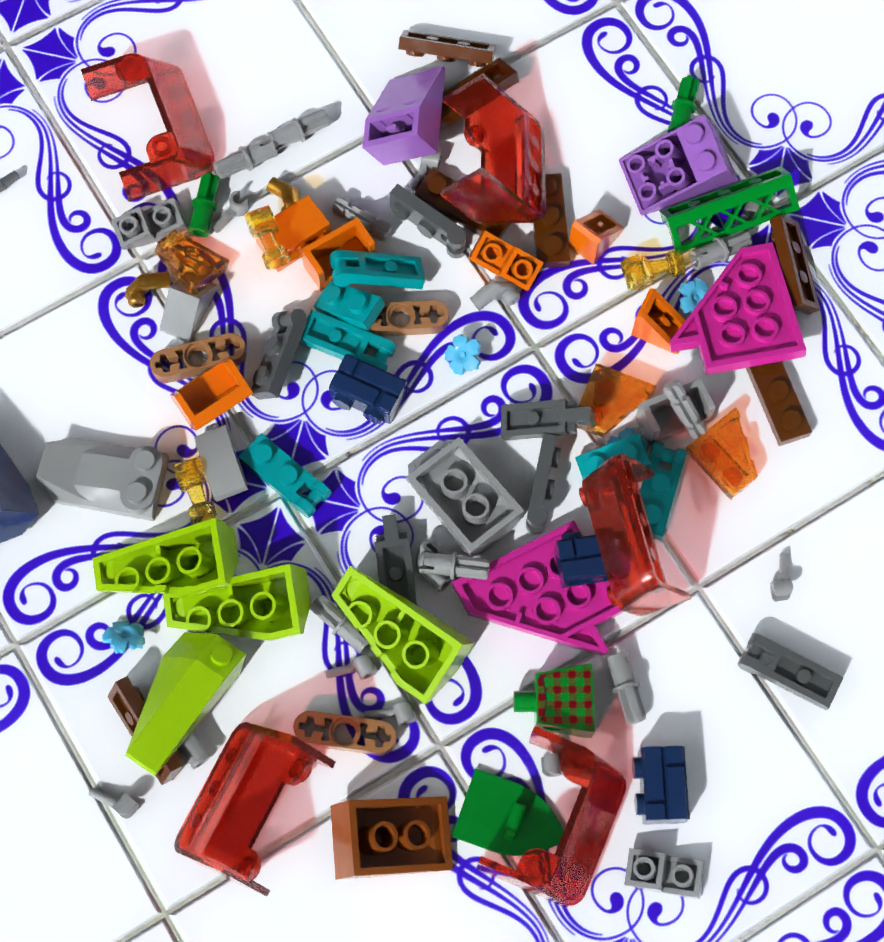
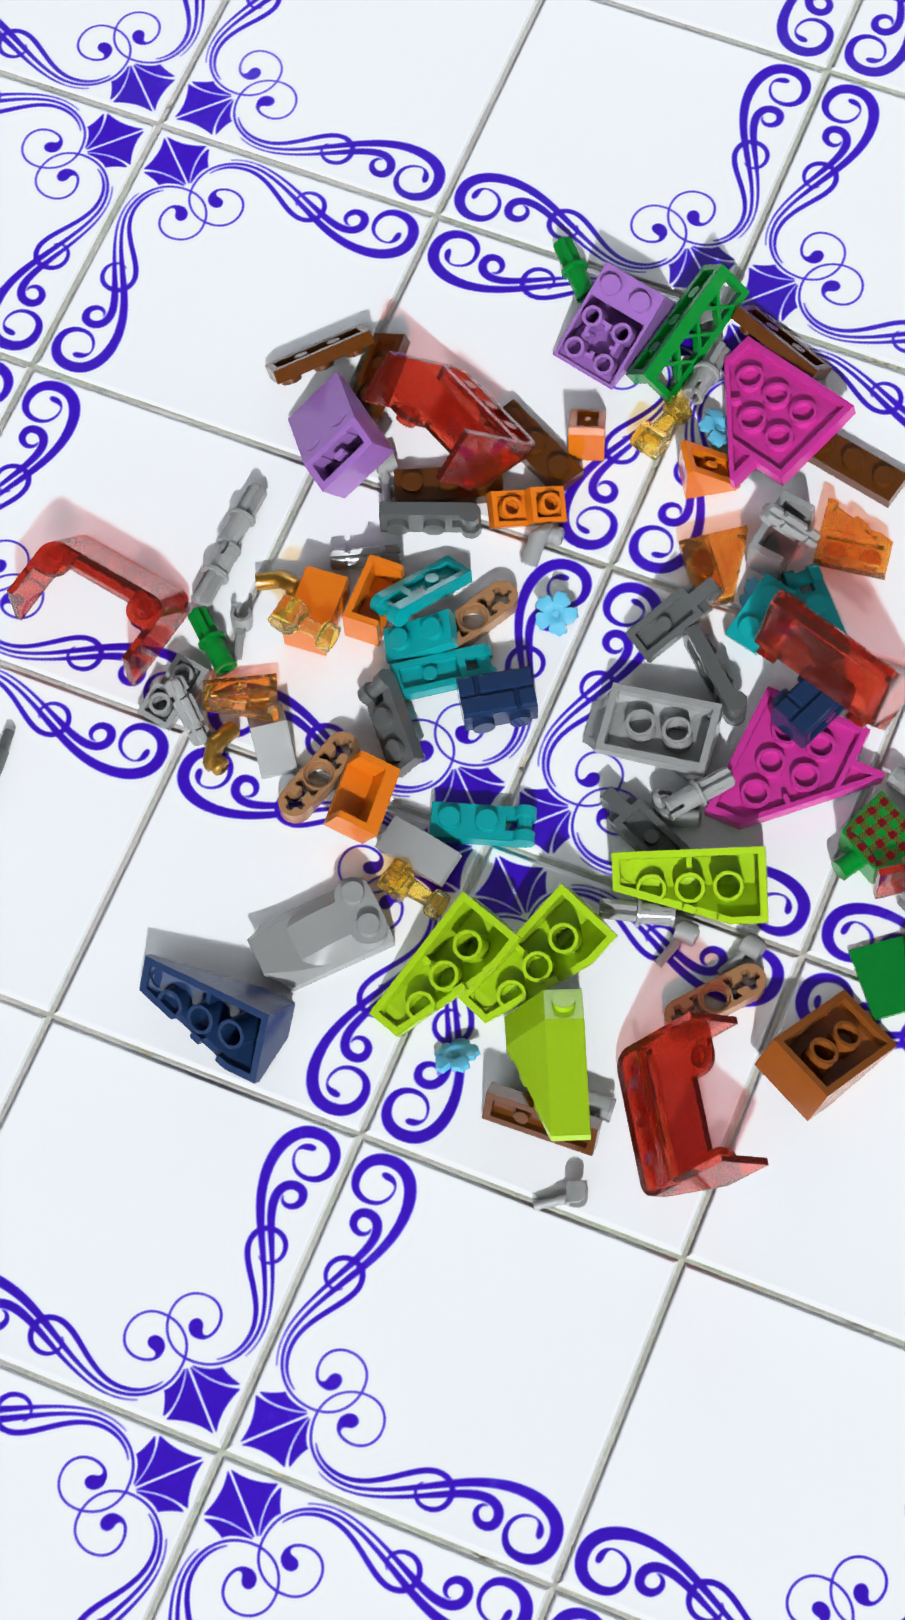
camera: 30 degrees left, 5 degrees down
(142, 243) = (187, 710): none -> light grey axle

